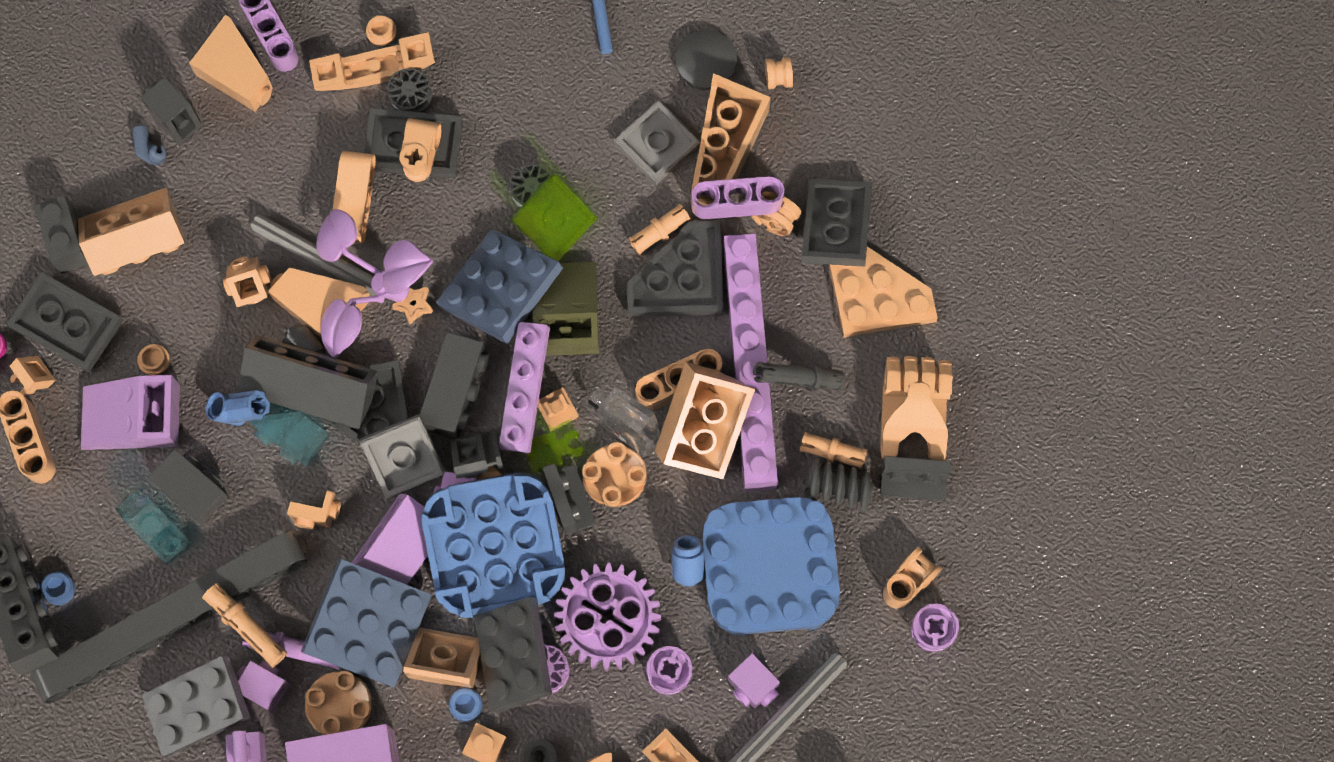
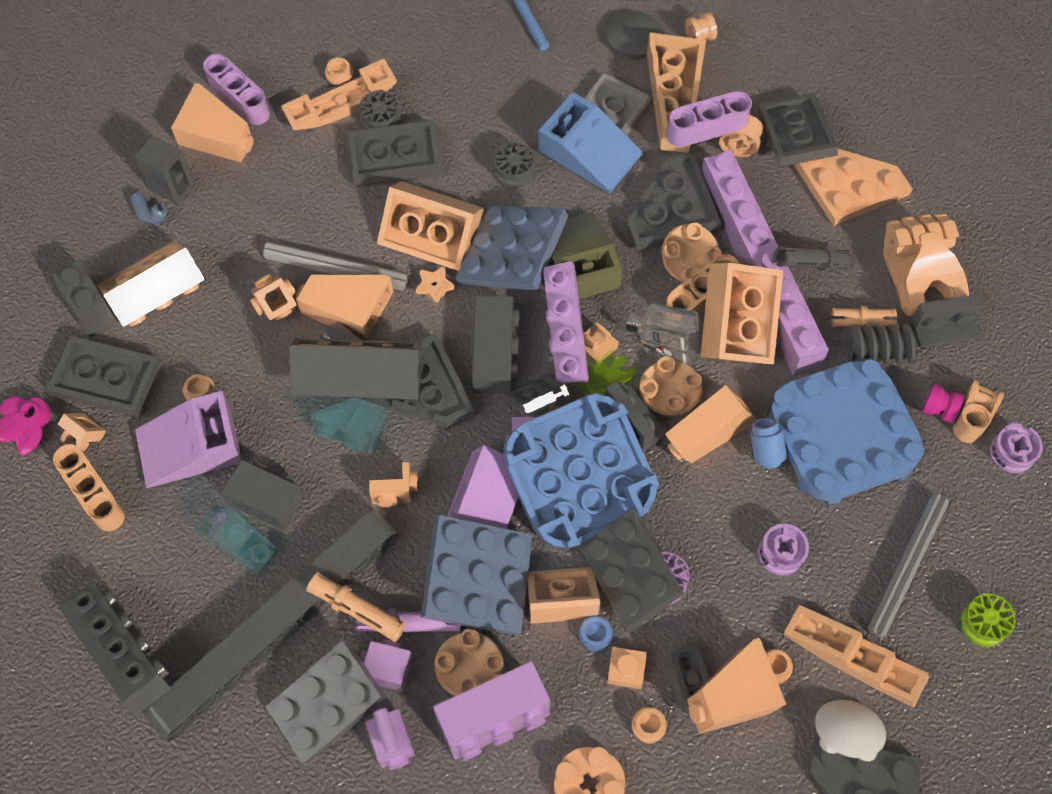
camera: 15 degrees left, 10 degrees down
(57, 588) = (153, 624): medium blue tile -> none
(237, 407) = (294, 408): medium blue piece -> none
(355, 188) = (353, 205): light nougat beam -> none
(402, 264) = (422, 235): lavender plant -> none
(402, 456) = (466, 415): light grey tile -> none
(419, 148) = (404, 150): light nougat piece -> none
(432, 227) = (428, 224): none -> light nougat slope
(553, 218) = (542, 179): clear neon green tile -> none
(591, 641) = (701, 540): lavender gear -> none
(614, 184) = (588, 143): none -> medium blue slope
(639, 527) = (710, 425): none -> light nougat slope
(659, 229) = (639, 172): light nougat pin -> none
(680, 333) = (688, 250): none -> light nougat dish
(753, 683) = (869, 539): lavender brick -> none
(876, 561) = (942, 403): none -> dark pink wheel

